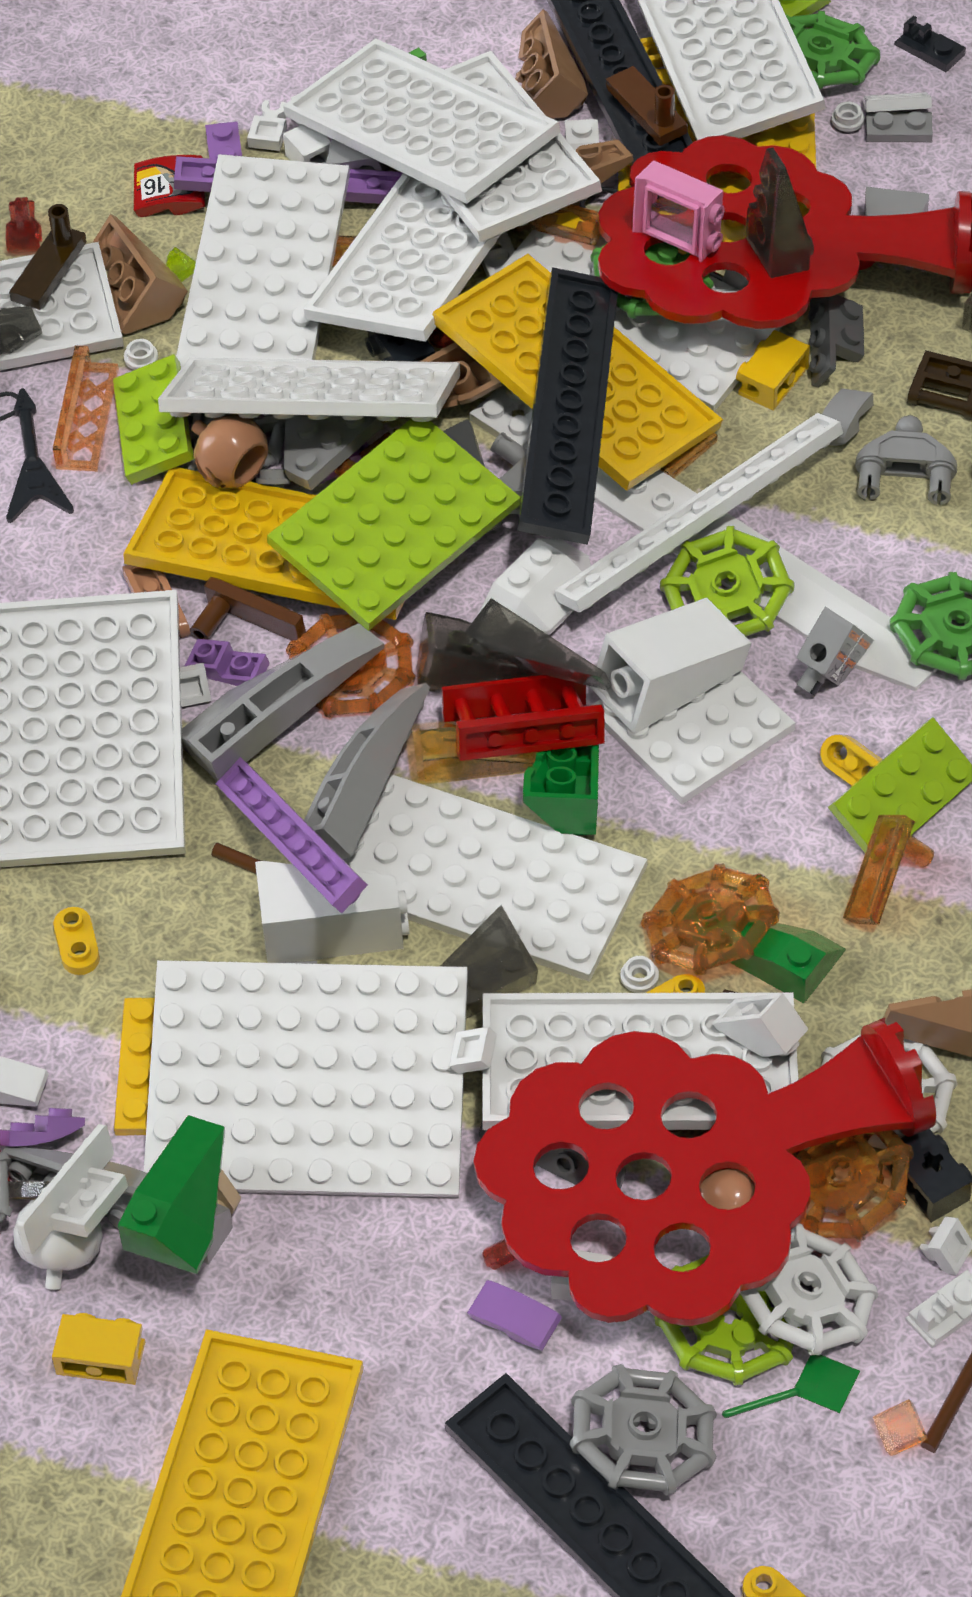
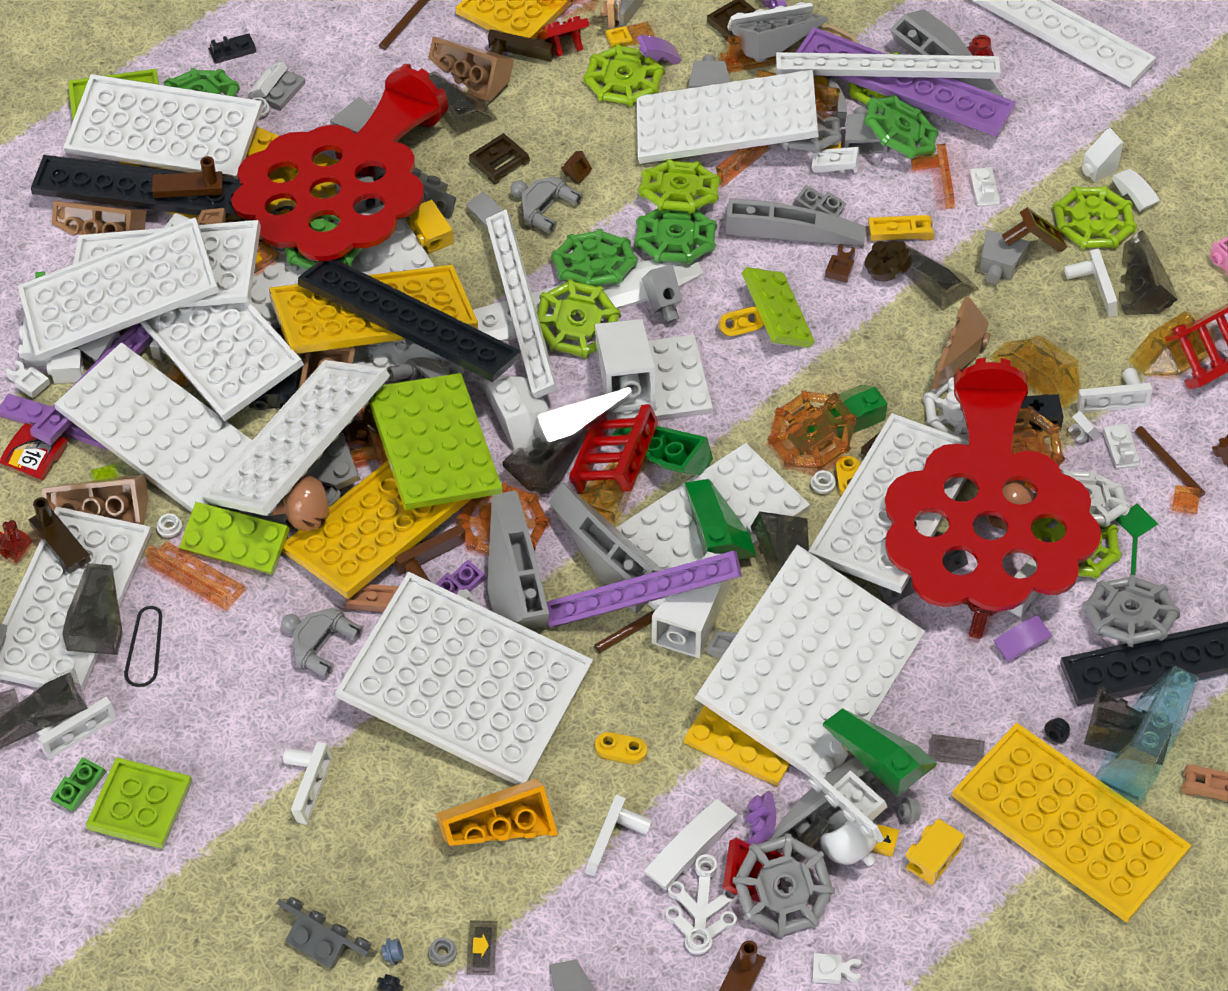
camera: 65 degrees left, 0 degrees up
(34, 478) = (228, 624): black piece -> none
(57, 558) = (314, 633): none -> light grey connector
(93, 1285) = (888, 845): none -> yellow tile
(150, 1293) = (909, 810): none -> light grey plate
(285, 1312) = (956, 750): none -> clear smoke tile
(381, 1418) = (1057, 730): none -> black plate
(404, 1525) = (1135, 766): none -> clear light blue windscreen
(409, 1488) = (1115, 724): none -> clear smoke wedge
(473, 879) = (716, 522): none -> green wedge
(473, 1050) = (853, 568): white plate -> none
(678, 209) = (314, 194): bright pink window -> none
(763, 1024) = (914, 431): white slope -> none
(776, 223) = (363, 151): clear smoke wedge -> none
(845, 580) = (604, 258): none -> bright green plate
(880, 865) = (828, 340): clear orange piece -> none

